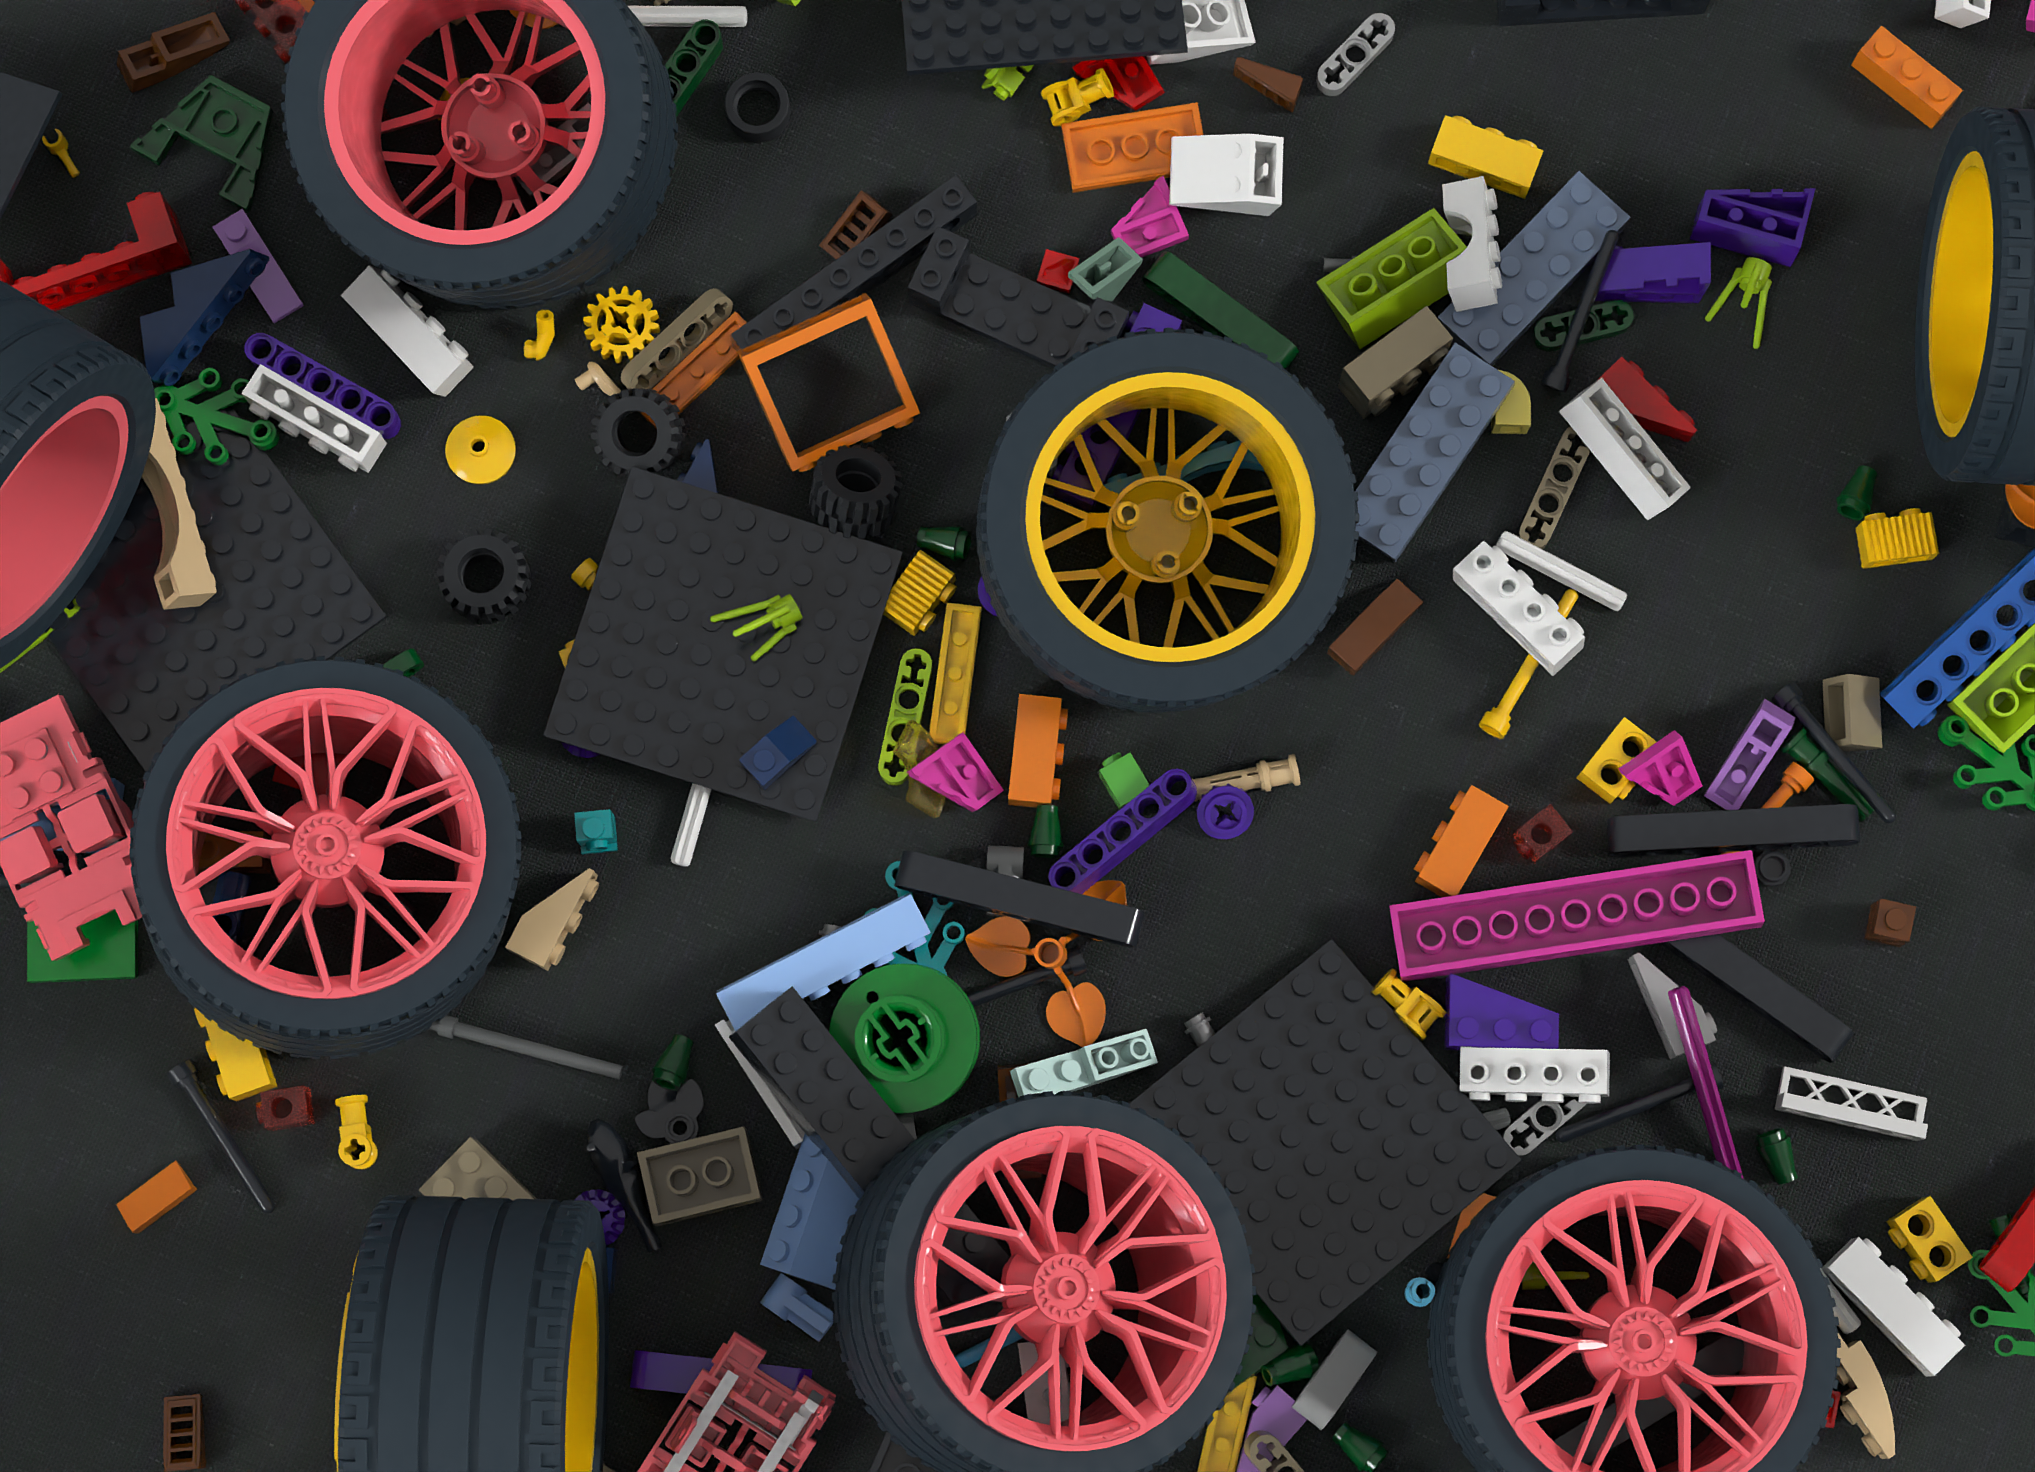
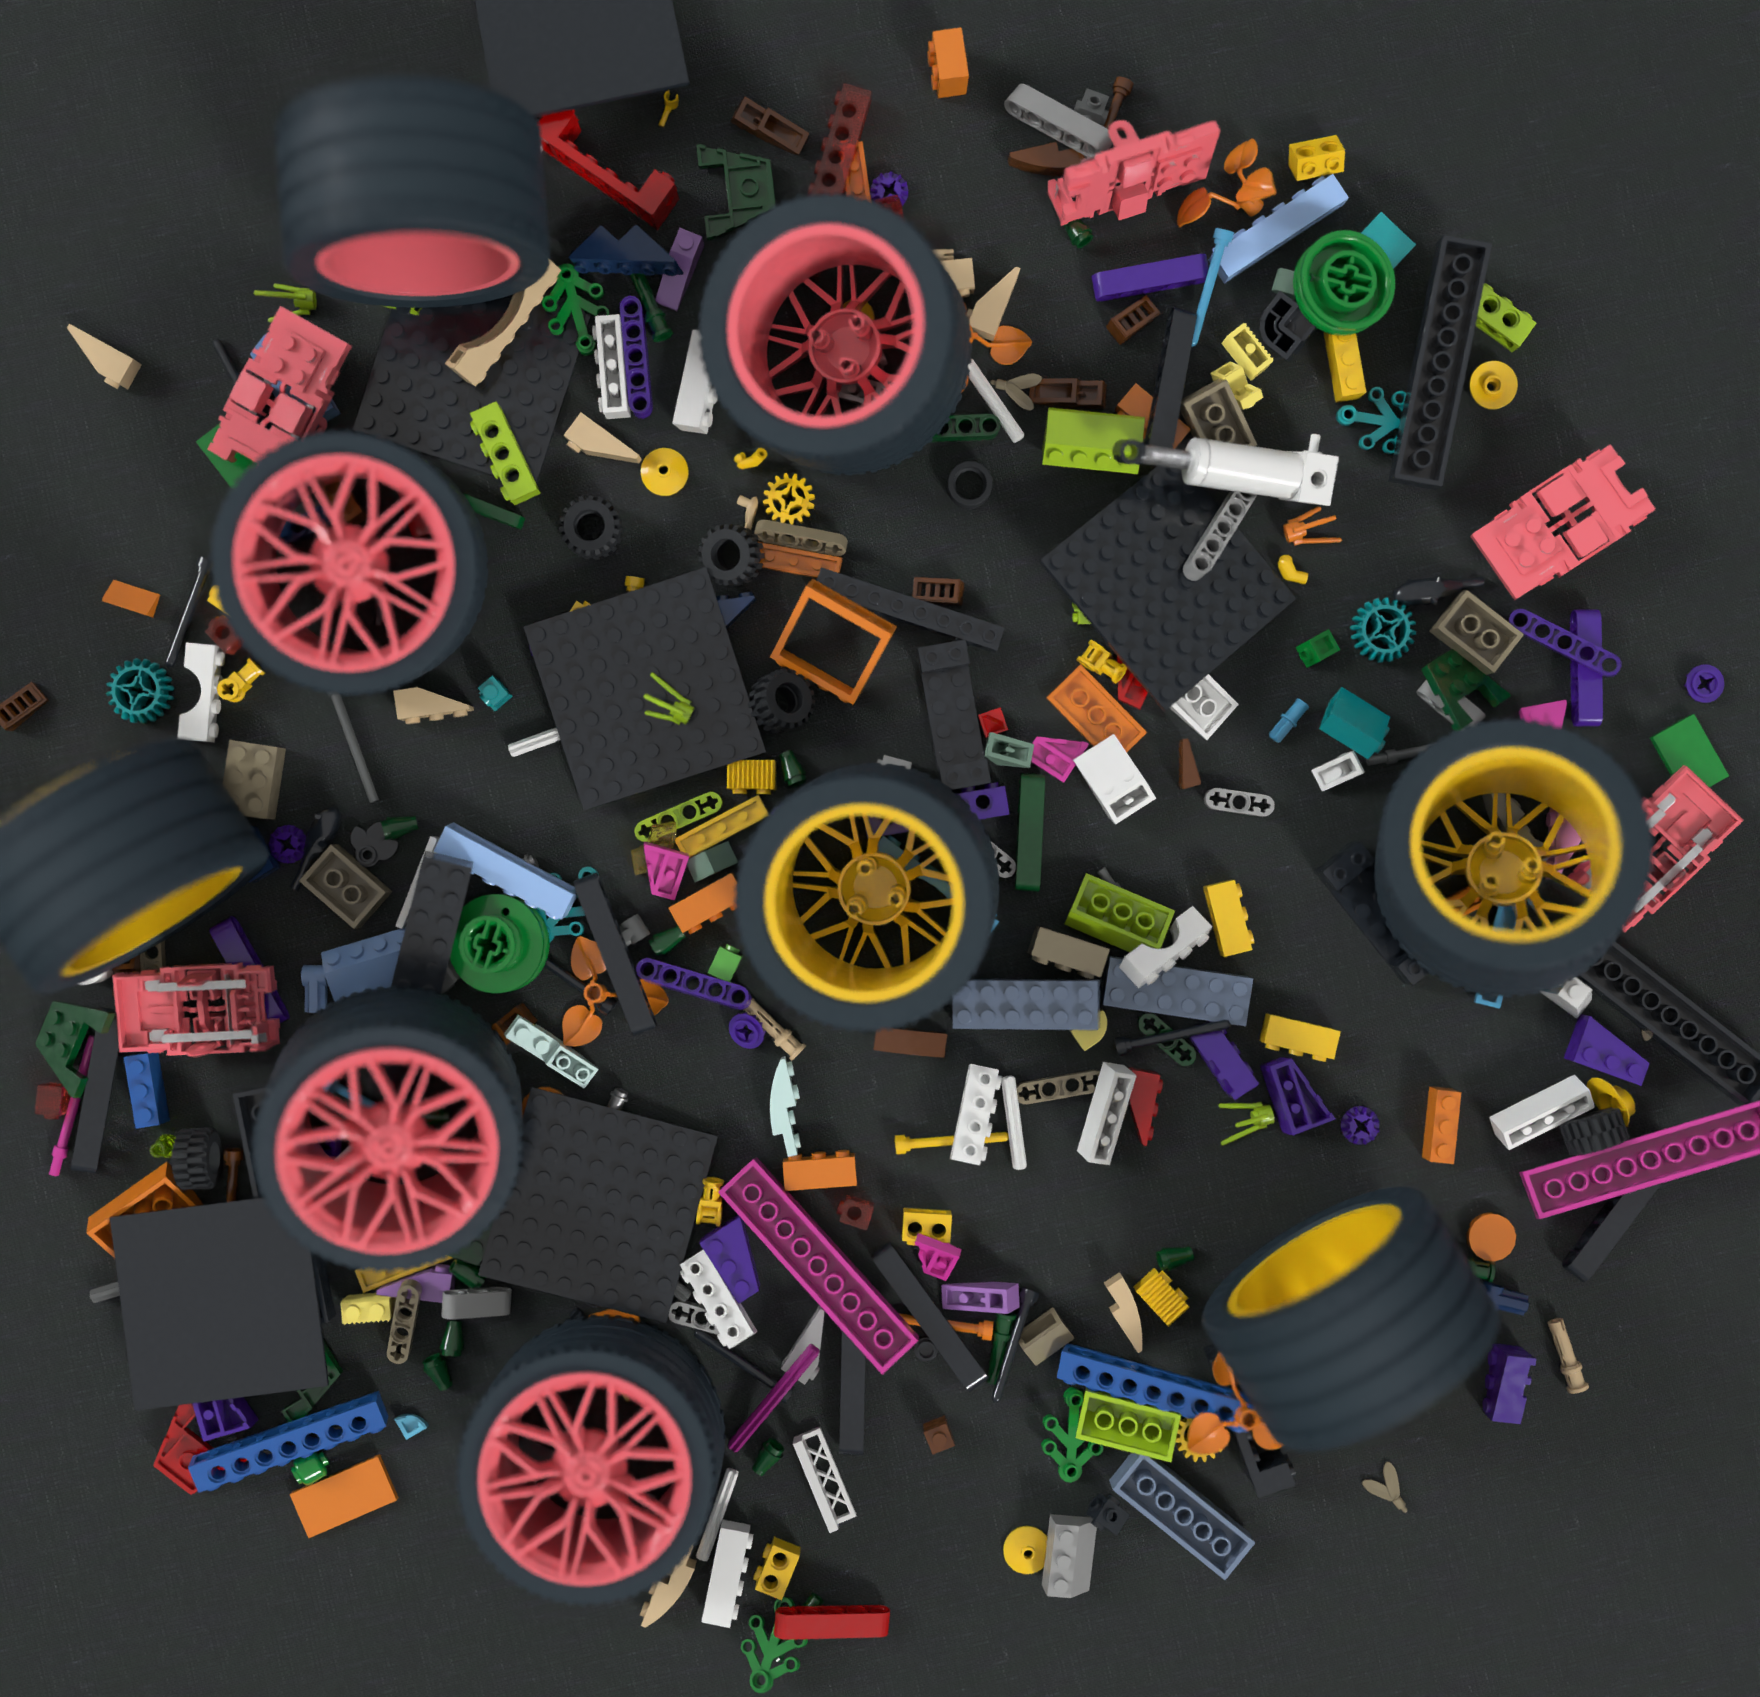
camera: 50 degrees right, 10 degrees up
(262, 1276) = (143, 682): none -> teal gear
(269, 597) = (493, 417): none -> lime brick
(289, 331) = (654, 315): none -> dark green pin
(299, 1160) = (206, 664): none -> white arch
(386, 500) = (596, 441): none -> tan slope
(777, 751) = (602, 764): dark blue slope -> none
(988, 715) = (711, 861): none -> sand green slope
(1335, 825) = (784, 1096): none -> light aqua slope
(1428, 1292) = (554, 1317): medium azure pin -> none
(1687, 169) = (1299, 1037): none -> yellow brick
(1836, 185) = (1349, 1126): none -> dark purple gear
(1886, 593) = (1125, 1310): none -> tan slope

